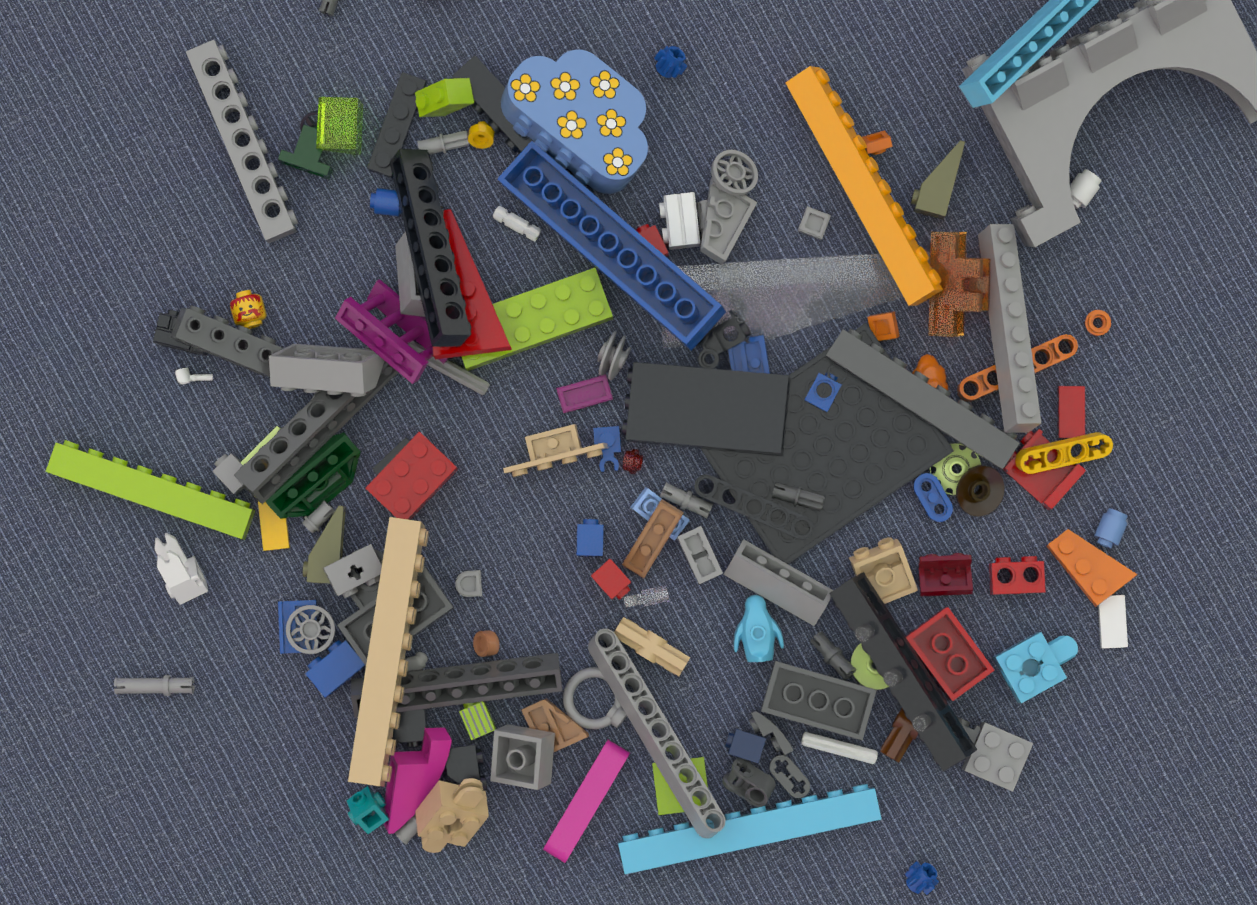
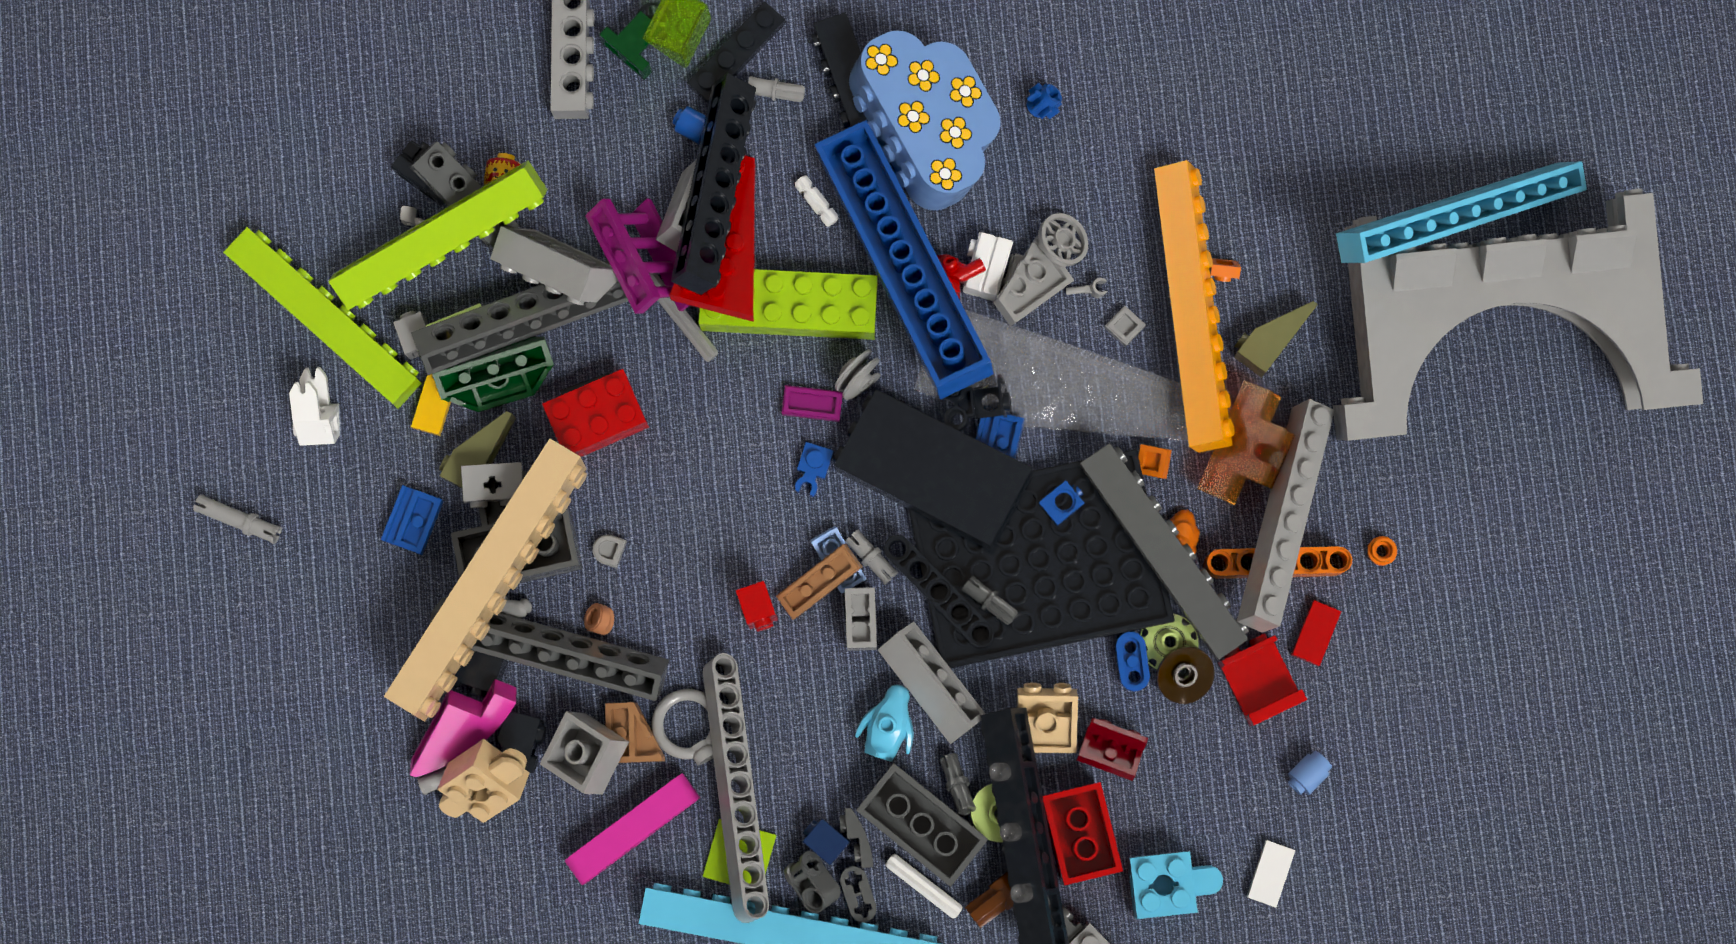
camera: 20 degrees right, 5 degrees down
(220, 385) = (439, 235): none -> lime brick
(310, 629) = (422, 527): light grey wheel -> none
(318, 517) = (481, 416): light grey pin -> none
(334, 669) = (428, 579): blue brick -> none
(367, 809) = (399, 740): teal brick -> none
(444, 97) = (795, 41): lime brick -> none
(477, 719) = (555, 694): lime brick -> none
(481, 135) = (817, 96): yellow tile -> none
(552, 447) = (758, 444): tan bracket -> none
(590, 538) = (753, 555): blue brick -> none
(632, 461) = (832, 493): clear red plate -> none
(648, 597) = (788, 641): clear bar -> none
(651, 646) = (770, 694): tan piece -> none
(662, 236) = (961, 271): none -> red arm
(770, 205) = (1088, 289): none -> light grey hand
(1017, 583) = (1185, 789): red brick -> none
(1064, 452) = (1290, 674): yellow beam -> none
(1084, 188) = (1424, 404): white brick -> none
(1089, 567) = (1269, 805): orange wing -> none

